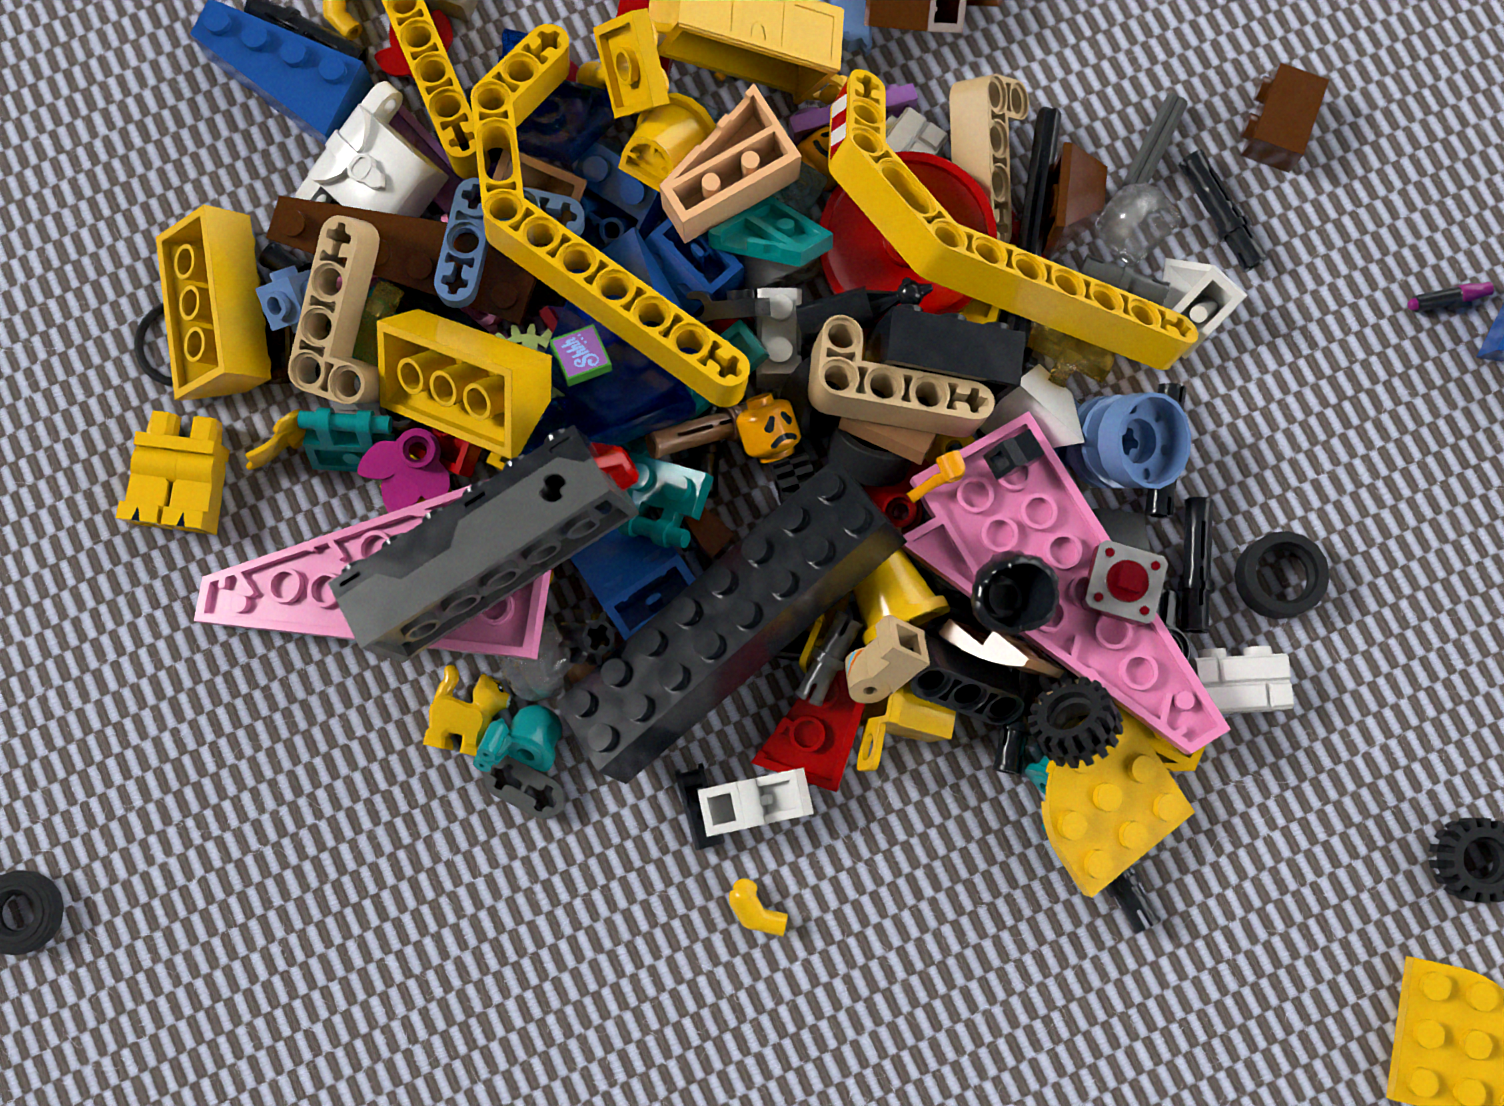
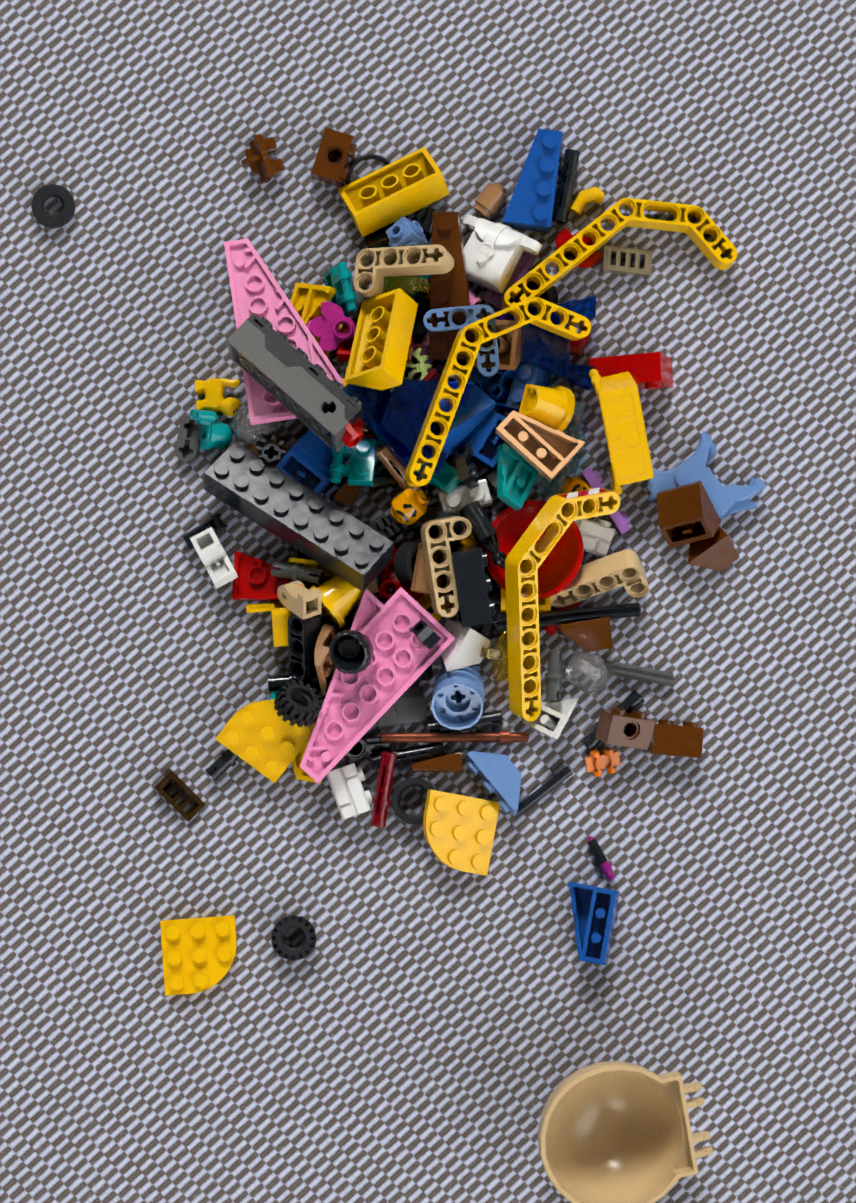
camera: 75 degrees right, 5 degrees up
(69, 514) = (259, 159): none -> reddish brown hips
(95, 374) = (331, 143): none -> reddish brown brick
(176, 478) = (295, 205): yellow hips -> none
(283, 154) = (490, 200): none -> medium nougat brick
(286, 434) = (337, 255): yellow plate -> none
(345, 495) = (308, 299): none -> yellow wing
(580, 355) = (408, 398): tile -> none
(628, 64) = (578, 372): yellow plate -> none
(751, 912) = (159, 573): yellow arm -> none
(951, 471) = (410, 605): light orange hand -> none
(1124, 583) = (376, 709): piece -> none
(1145, 1020) = (164, 779): none -> dark brown slope
(1204, 398) = (503, 737): none -> copper bar
(1232, 497) = (445, 763): none -> reddish brown slope
(1251, 186) = (636, 735): none -> reddish brown brick
(1282, 416) = (499, 777): none -> medium blue slope
(1287, 245) = (600, 760): none -> orange piece
(1299, 642) = (383, 789): none -> dark red pin
(1314, 362) = (542, 791): none -> black bar
(1355, 509) = (460, 830): none -> yellow plate

